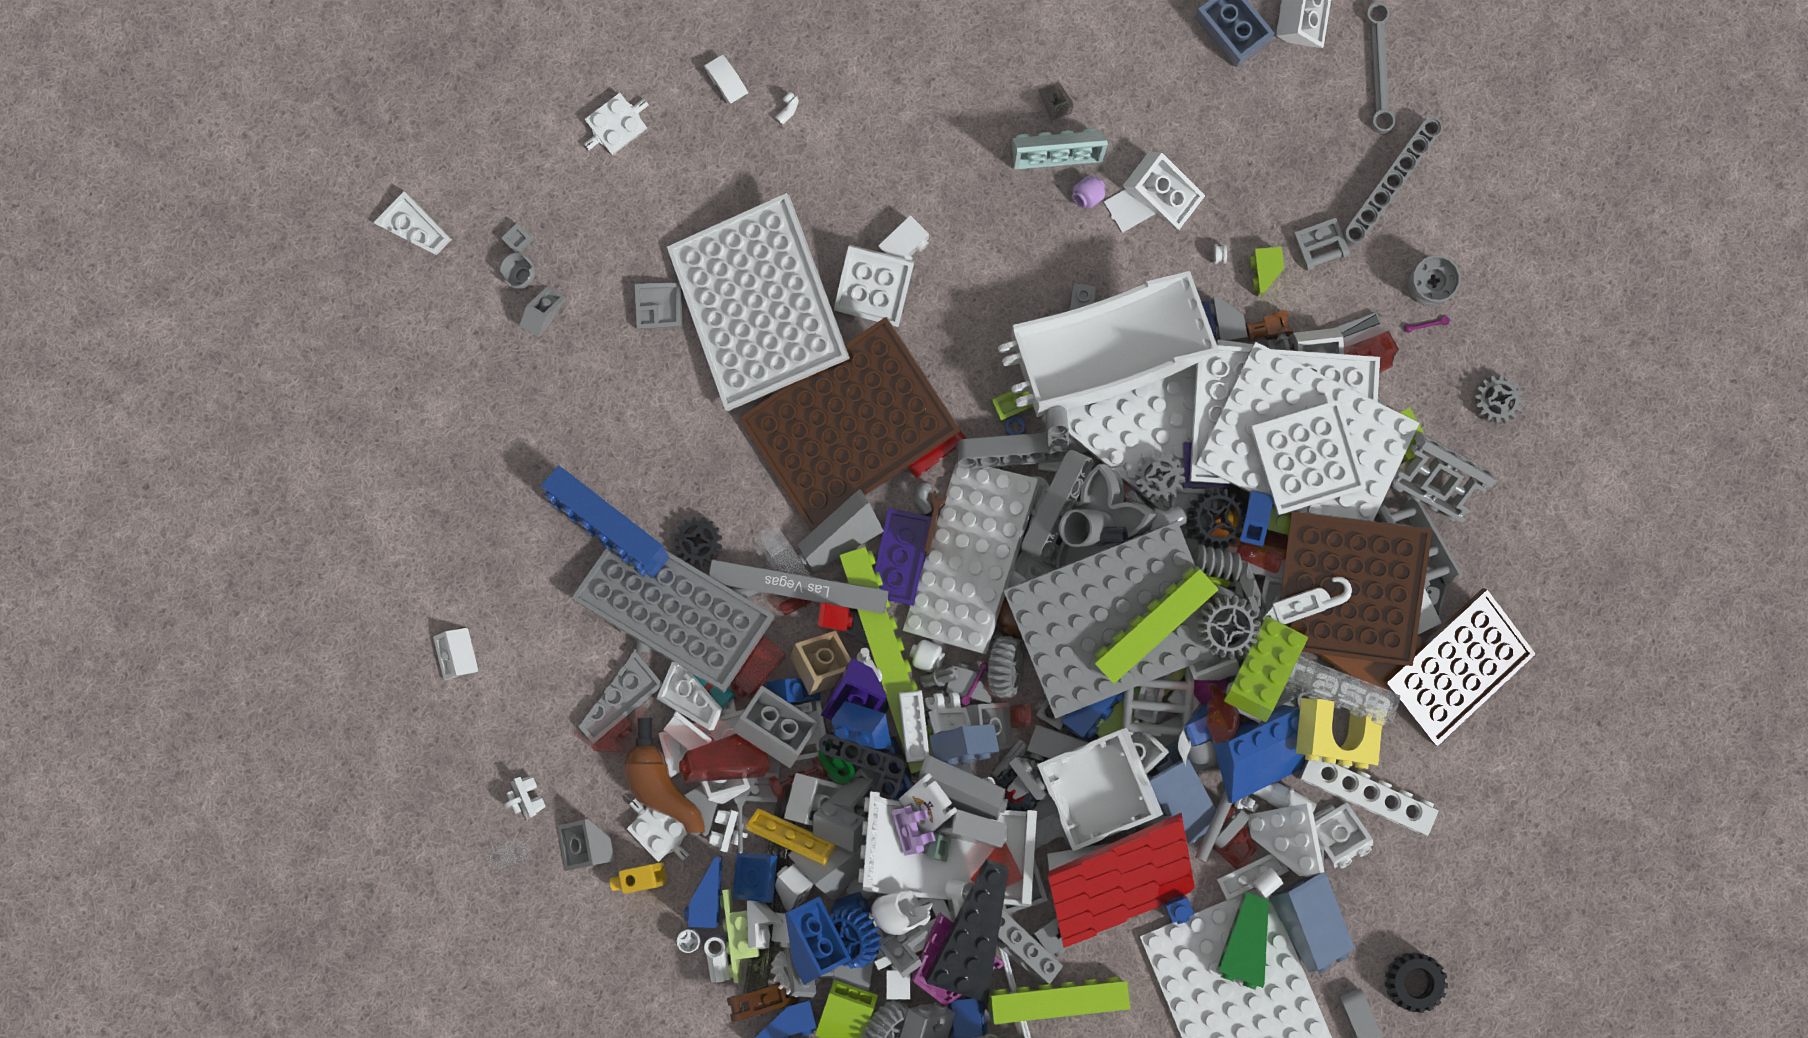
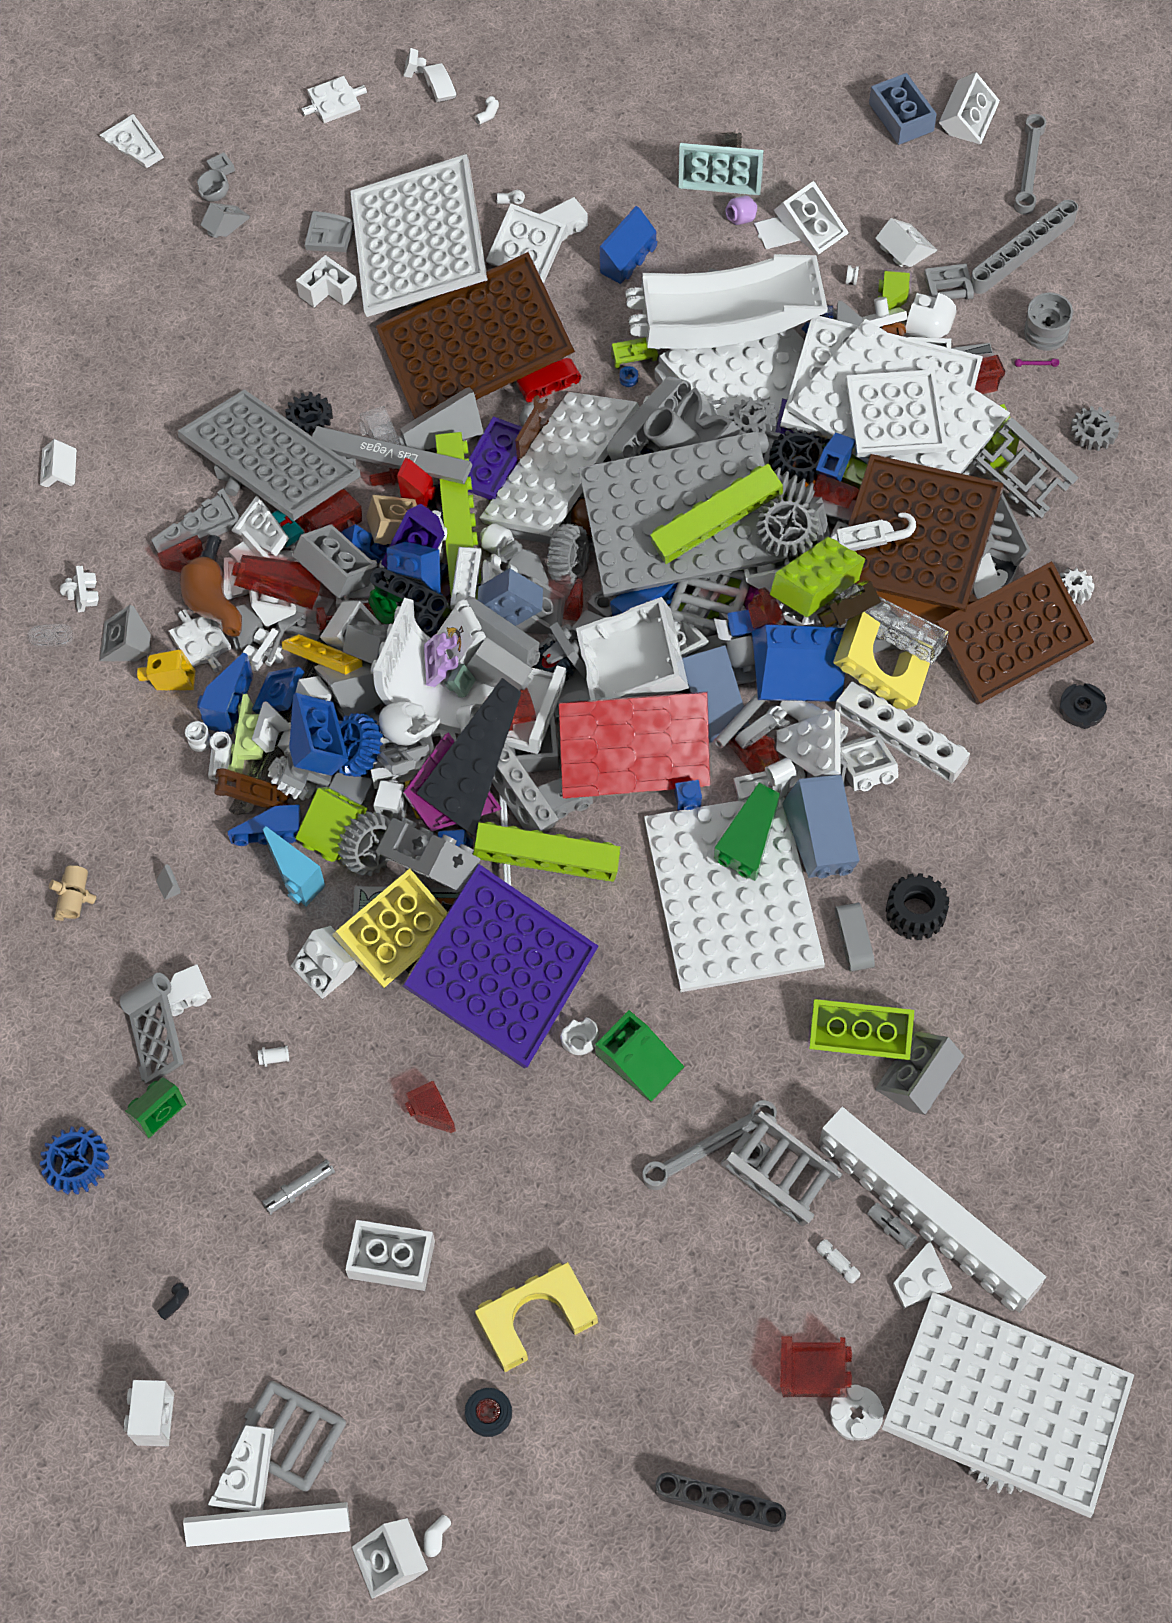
camera: 15 degrees right, 20 degrees down
(604, 522) = (227, 374): blue brick -> none
(672, 371) = (326, 279): none -> white brick
(691, 60) = (413, 63): none -> white tile
(846, 219) = (513, 197): none -> white arm
(966, 699) = (535, 564): magenta hinge -> none
(982, 269) = (627, 246): none -> blue slope
(1018, 449) = (628, 378): light grey beam -> none
(1114, 534) = (695, 437): black hinge -> none
(1263, 305) = (883, 315): none -> white tile
(1268, 201) = (904, 243): none -> white slope
(1304, 697) = (849, 607): none -> dark brown hips
(1309, 292) = (930, 316): none -> white brick
(1515, 591) = (1078, 585): none -> white gear
(1547, 722) = (1083, 717): none -> black plate

